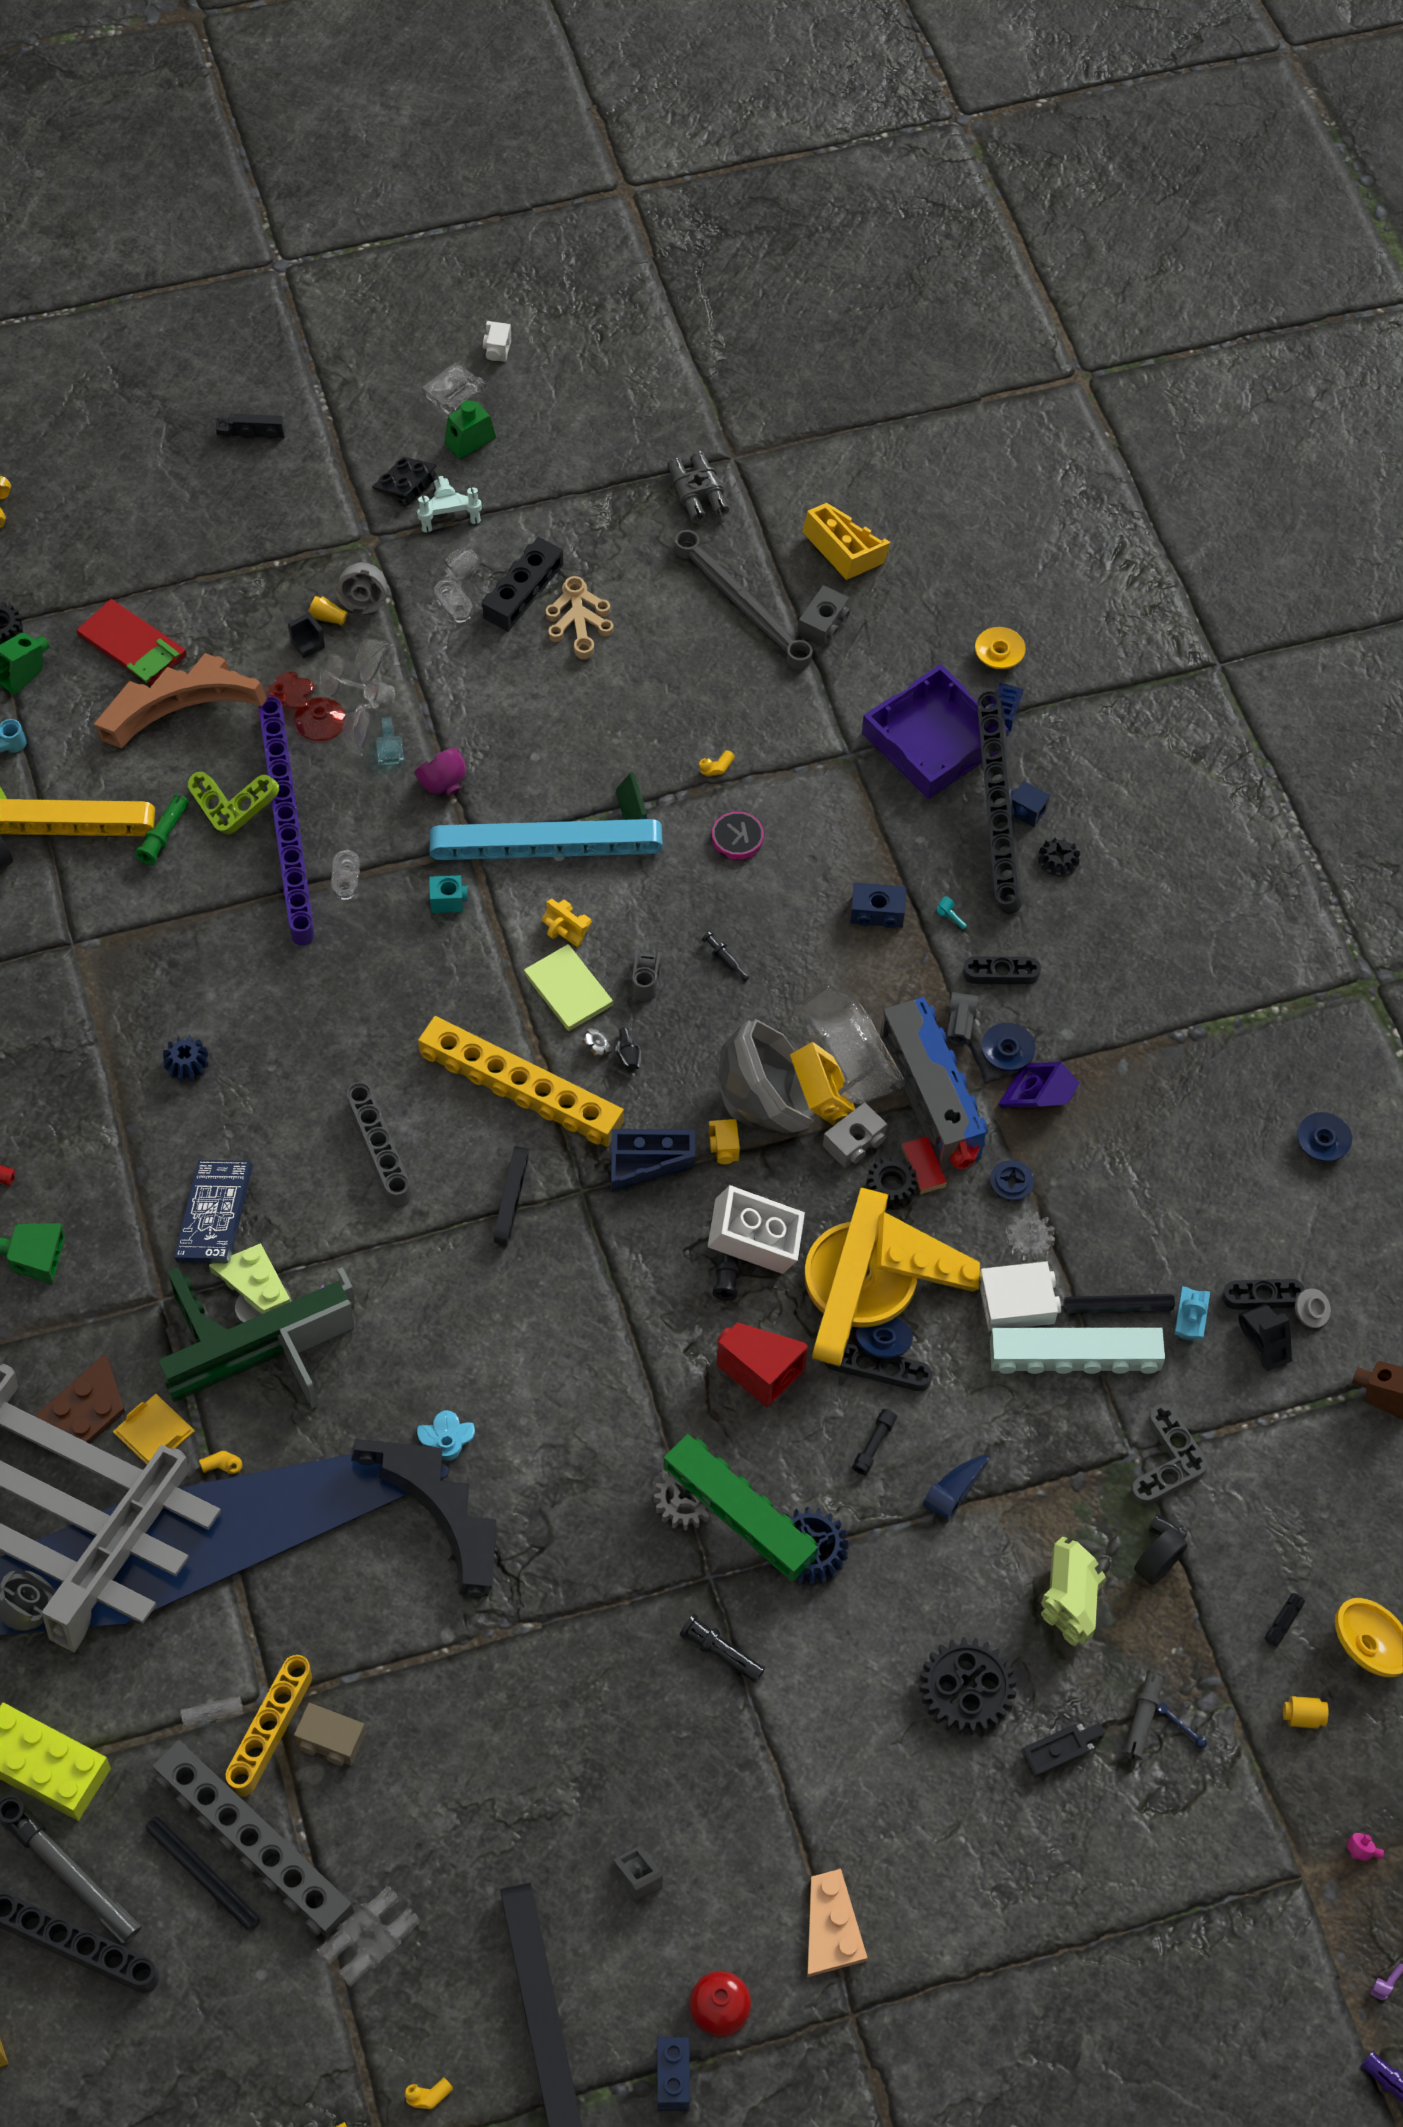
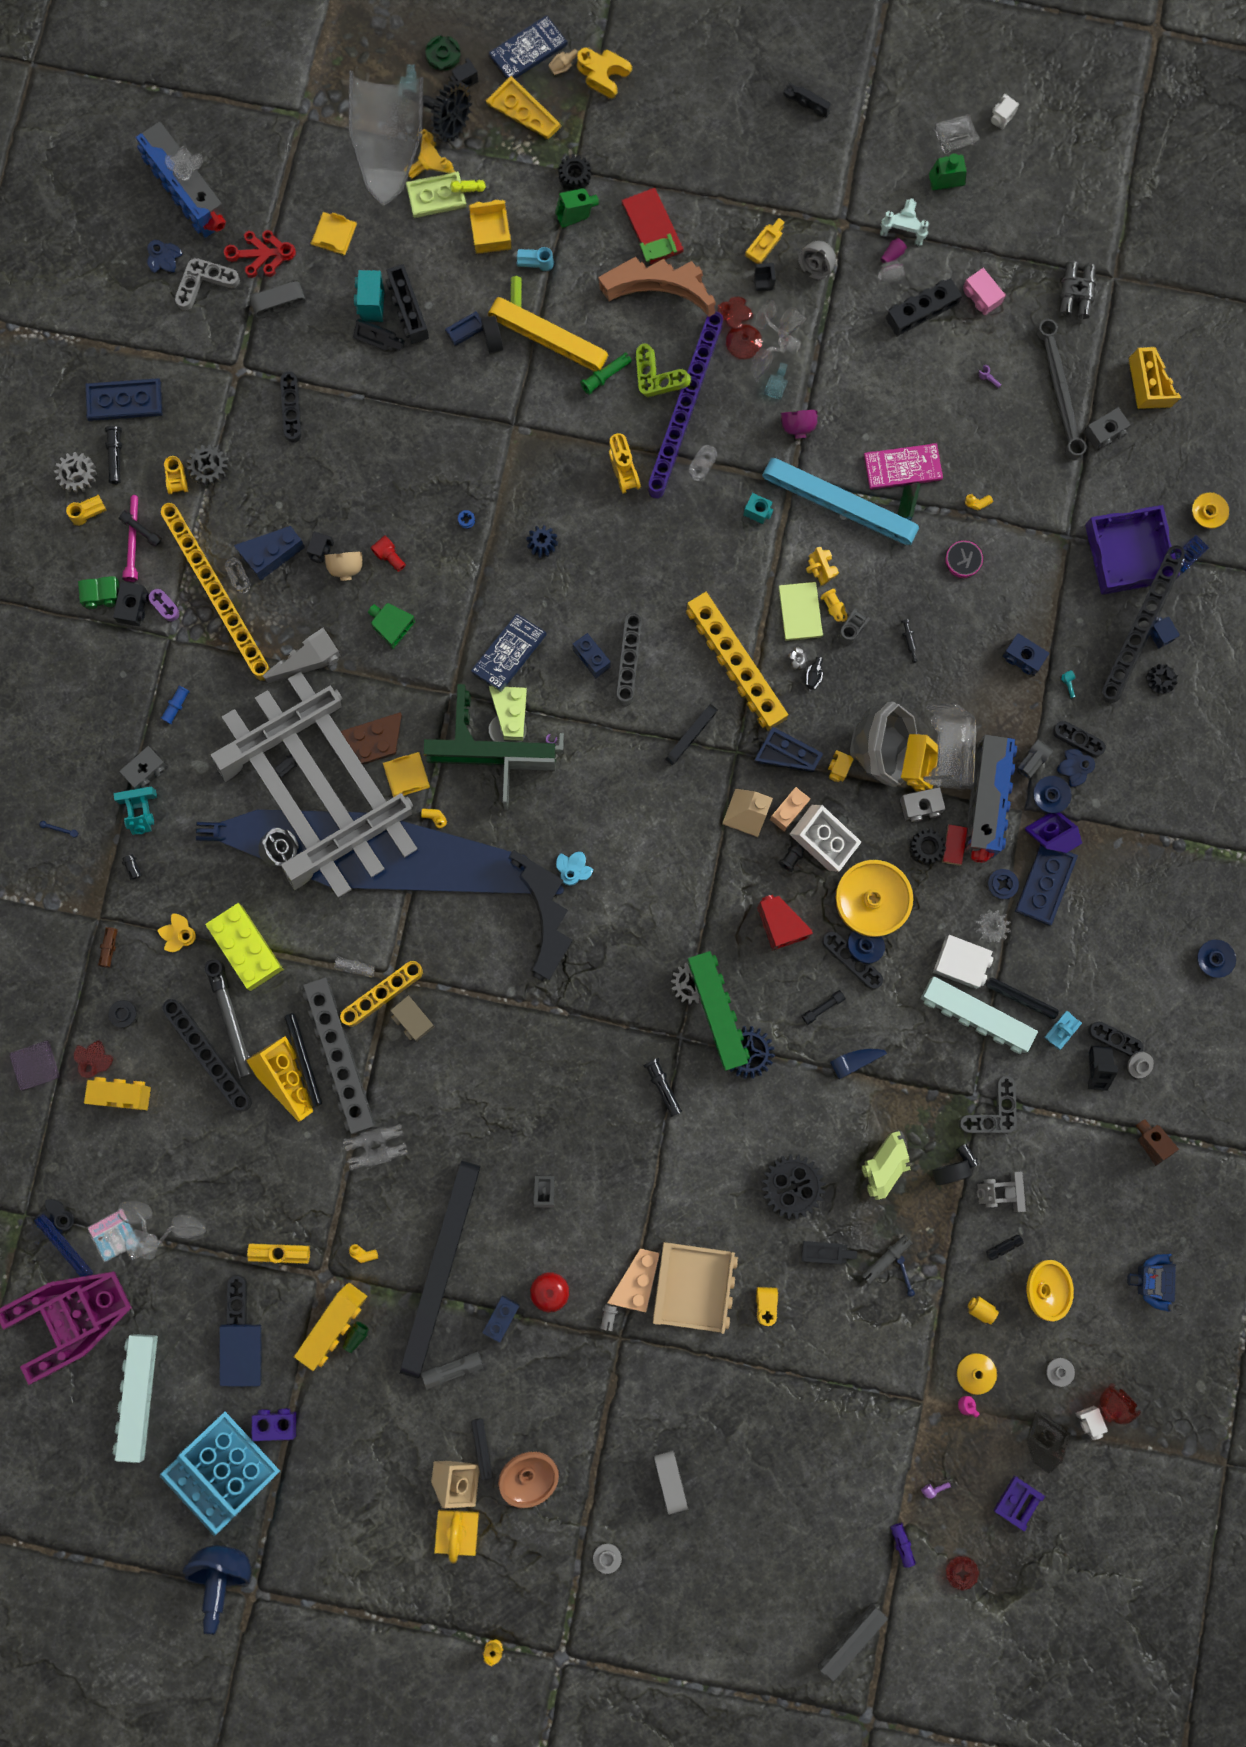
camera: 25 degrees right, 20 degrees up
(66, 1072) = (461, 516): none -> blue bush
(173, 1905) = (279, 1074): none -> yellow wedge
(241, 918) = (622, 463): none -> yellow piece
(285, 598) = (765, 242): none -> yellow hinge
(326, 611) = (787, 265): yellow cone -> none
(326, 1162) = (591, 655): none -> dark blue brick
(407, 479) = (889, 189): black hinge -> none
(451, 539) = (894, 250): none -> magenta cone
(455, 602) = (872, 298): clear plate -> none
(578, 614) = (948, 347): tan plant -> none
(586, 536) = (983, 291): none -> bright pink brick
(600, 767) = (903, 466): none -> dark pink tile
(612, 961) = (835, 607): none -> yellow piece
(637, 1251) = (747, 811): none -> tan slope
(641, 624) = (987, 375): none -> medium lavender hand
(690, 1221) = (790, 809): none -> light nougat brick
(820, 1992) = (608, 1317): none -> light grey pin
(849, 1277) = (865, 899): yellow beam -> none
(914, 1890) = (694, 1287): none -> tan panel
(920, 1256) = (915, 907): yellow wing -> none
(1014, 1004) = (1073, 767): none -> dark blue plate
(1022, 1855) = (767, 1301): none -> yellow piece
(1064, 1155) = (1046, 884): none -> dark blue tile
(1251, 1542) = (1012, 1192): none -> light grey tile
(1340, 1812) = (966, 1373): none -> yellow dish

